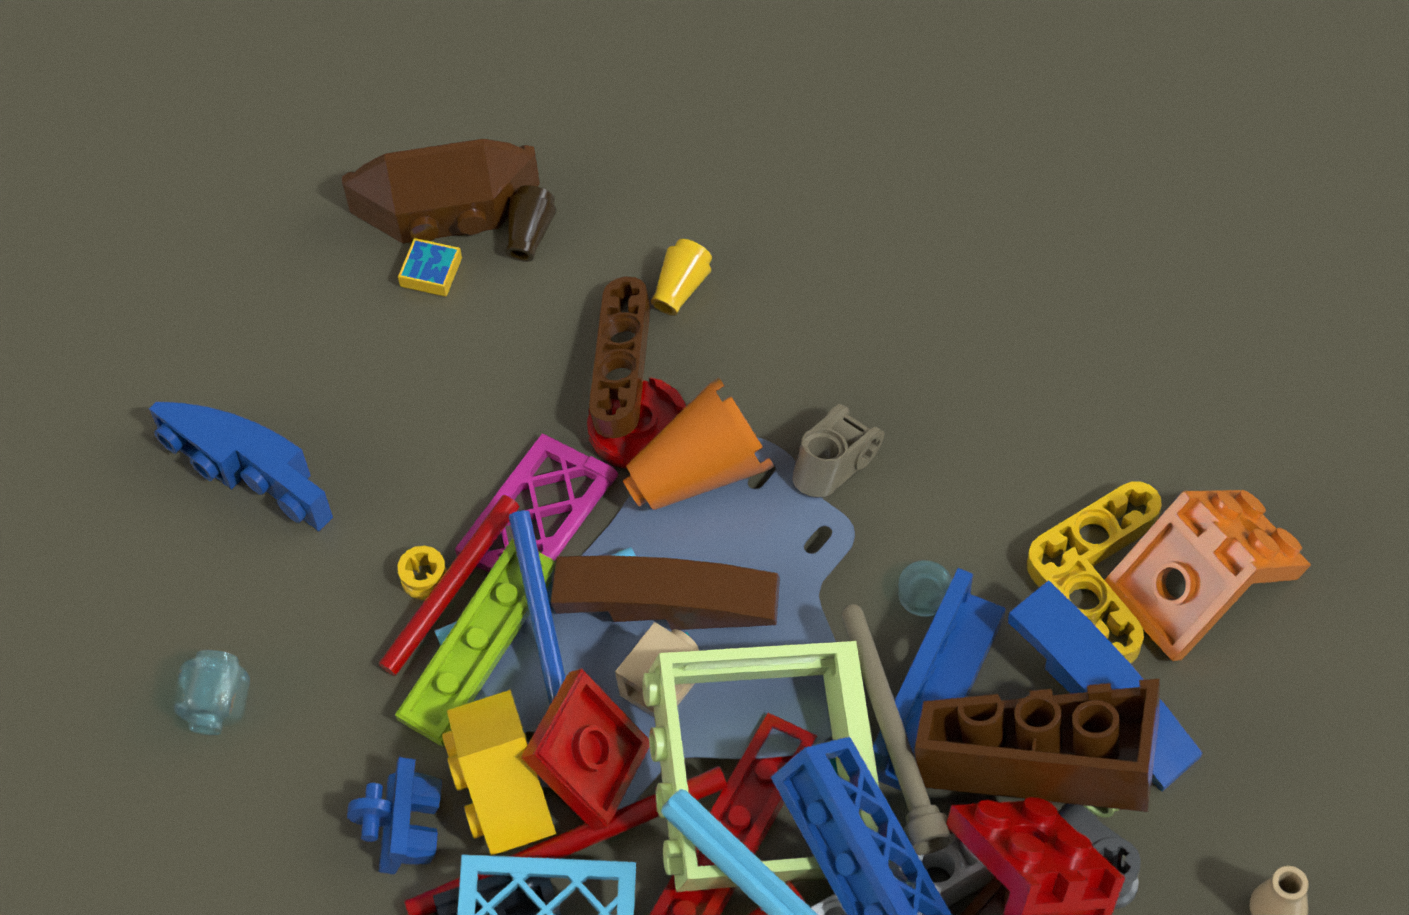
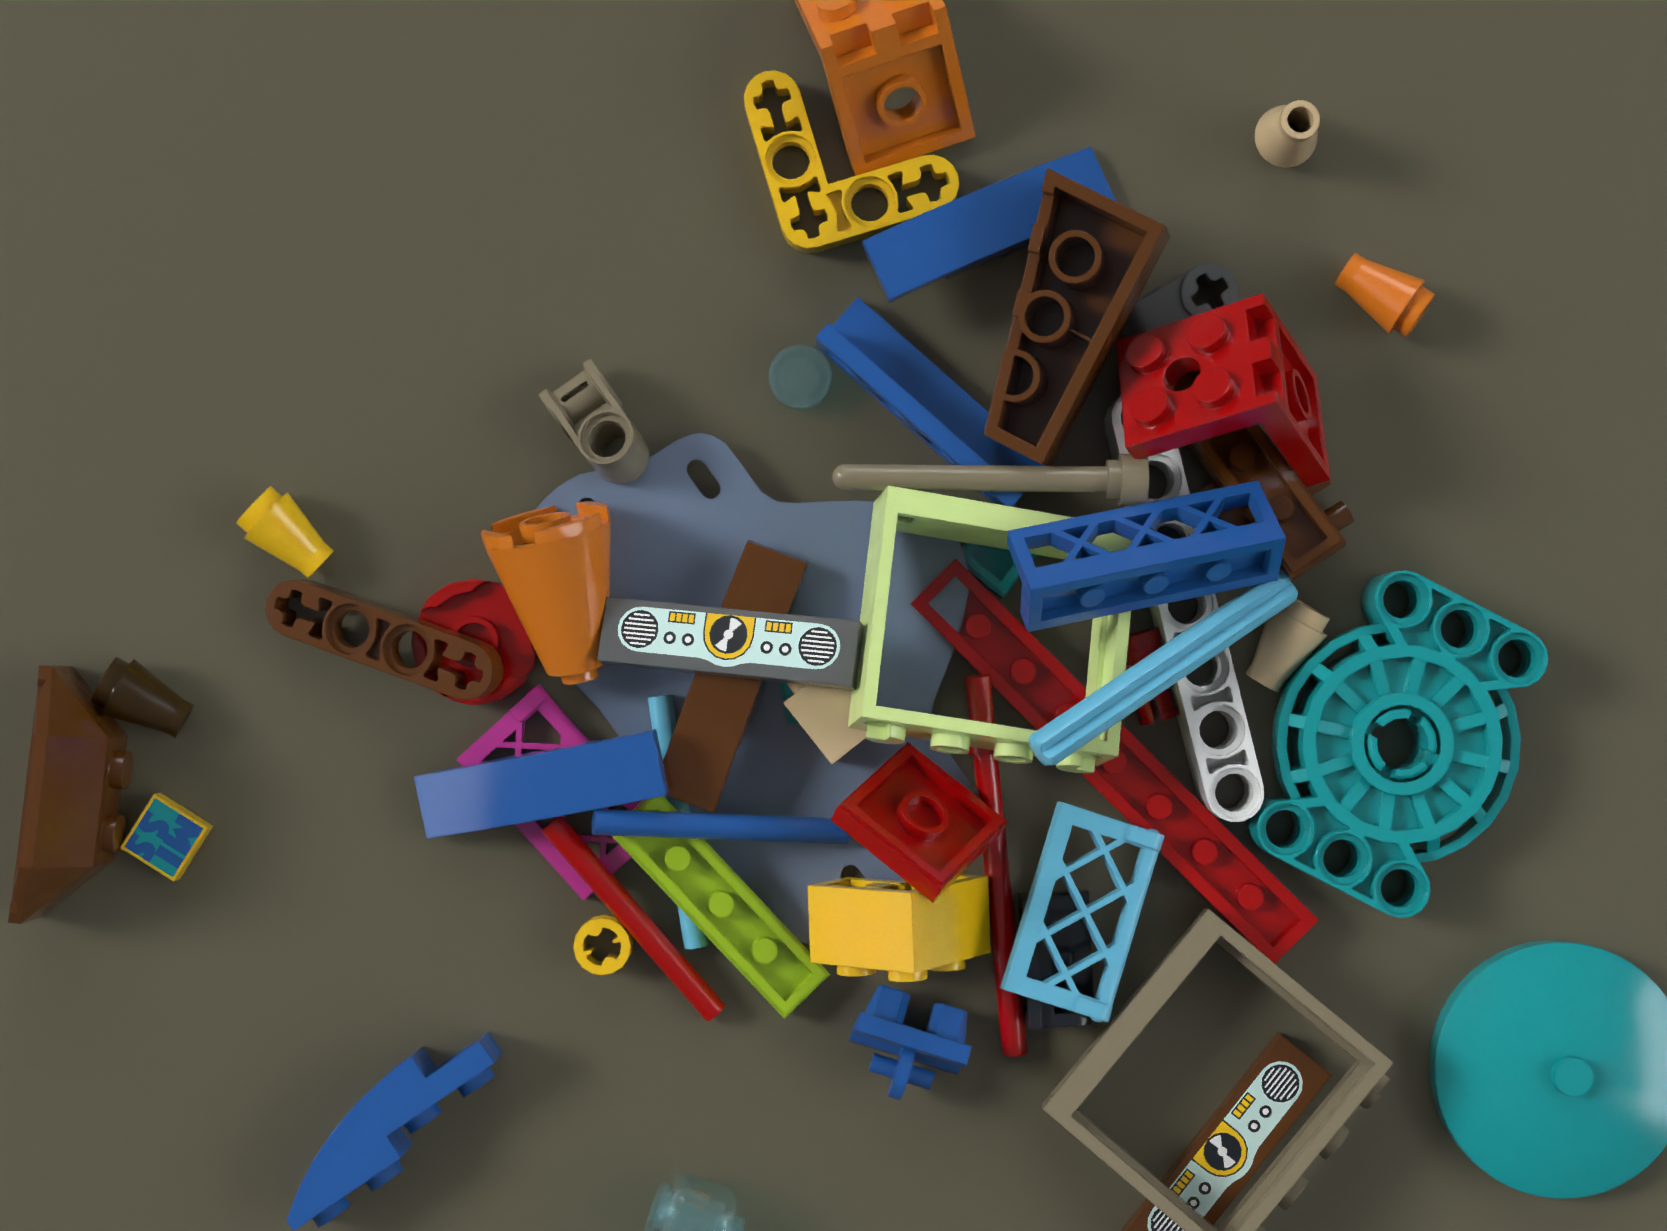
camera: 75 degrees left, 30 degrees up
(540, 484) = (542, 784): none -> blue slope
(690, 567) = (731, 643): none -> tile

